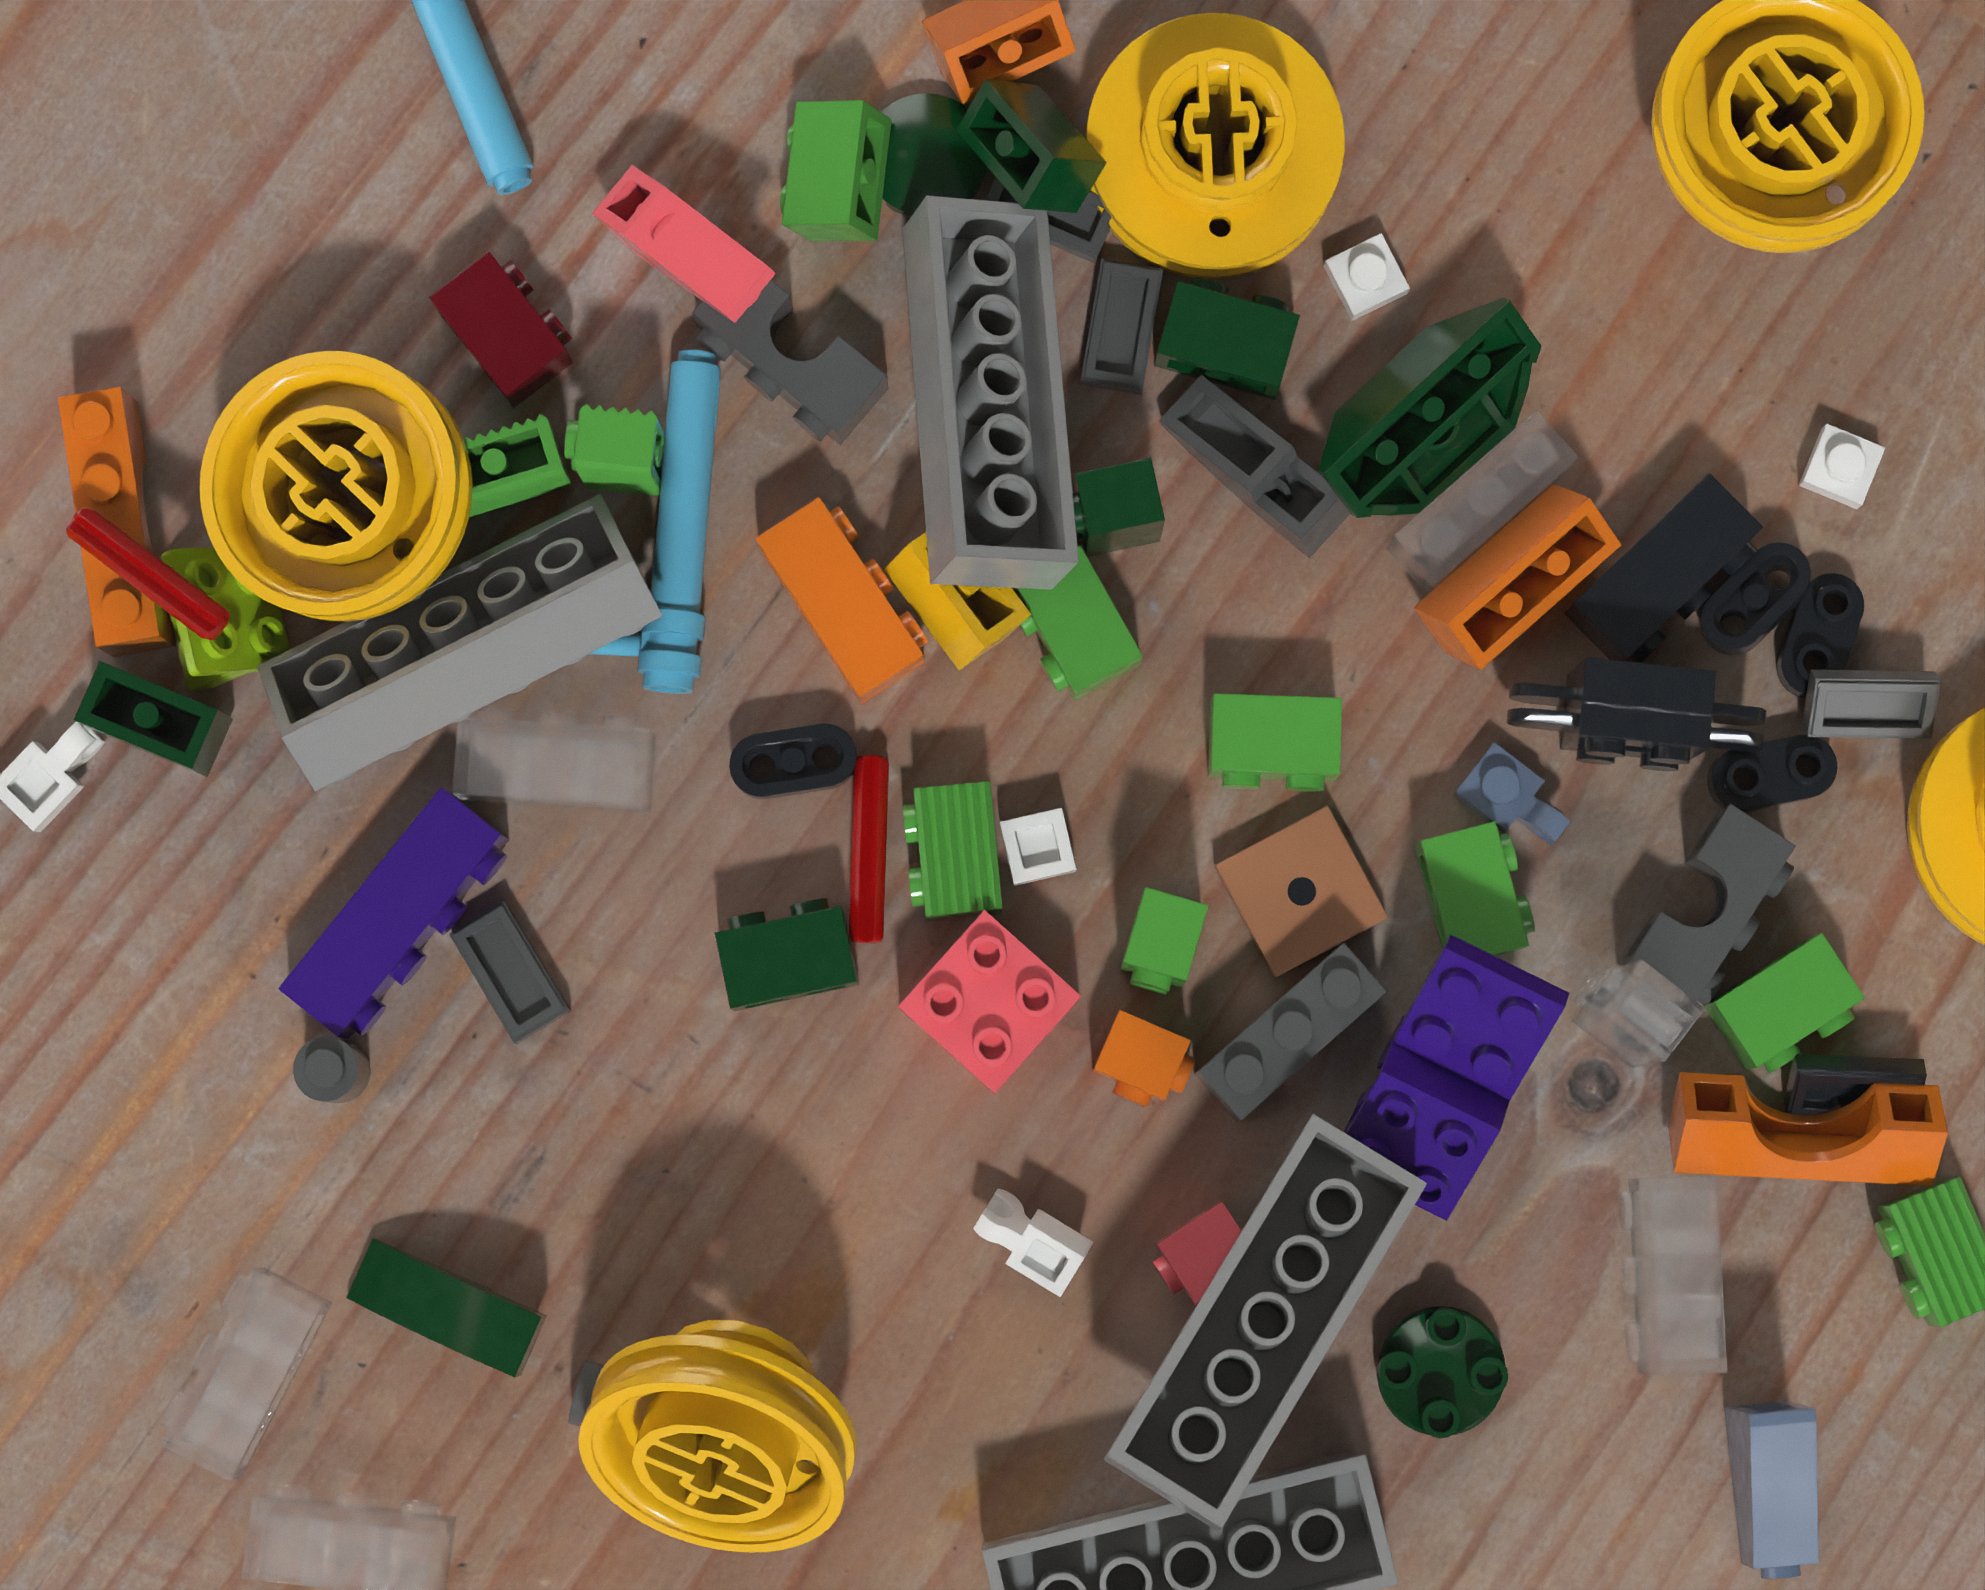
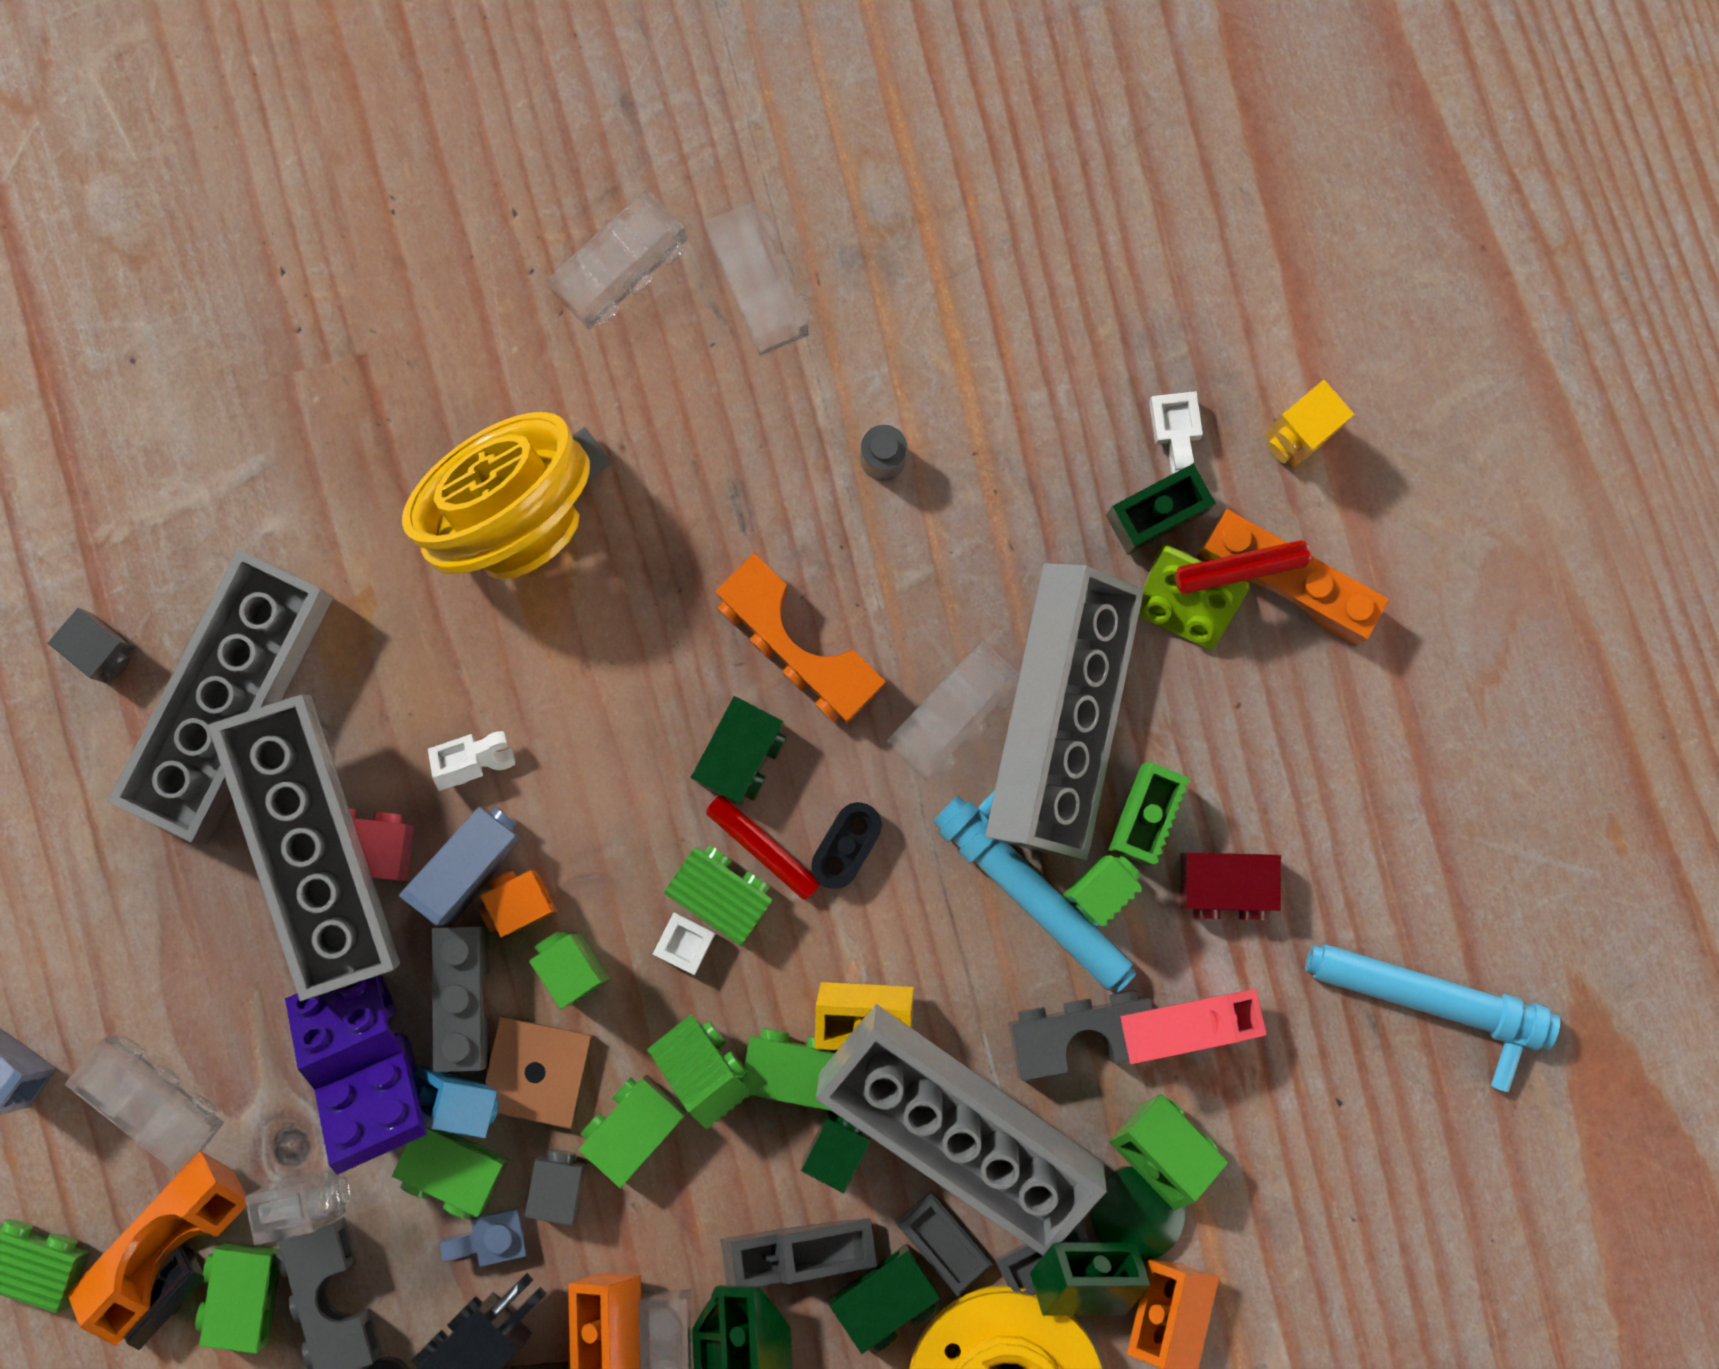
camera: 125 degrees right, 0 degrees up
(268, 491) = (1228, 674): yellow wheel -> none
(395, 915) = (942, 555): dark purple brick -> none
(446, 1308) = (702, 411): dark green slope -> none
(510, 972) = (859, 593): dark grey tile -> none
(608, 1073) = (756, 599): none -> orange arch
(843, 599) = (915, 950): orange brick -> none
(989, 1002) = (618, 842): coral brick -> none
(1148, 1146) = (462, 866): none -> sand blue slope
(1153, 717) = (699, 1070): none -> bright green brick
(1397, 942) = (455, 1102): none -> dark azure slope
(1398, 768) = (556, 1187): none -> dark grey brick
(1441, 1371) = (208, 925): dark green dish -> none

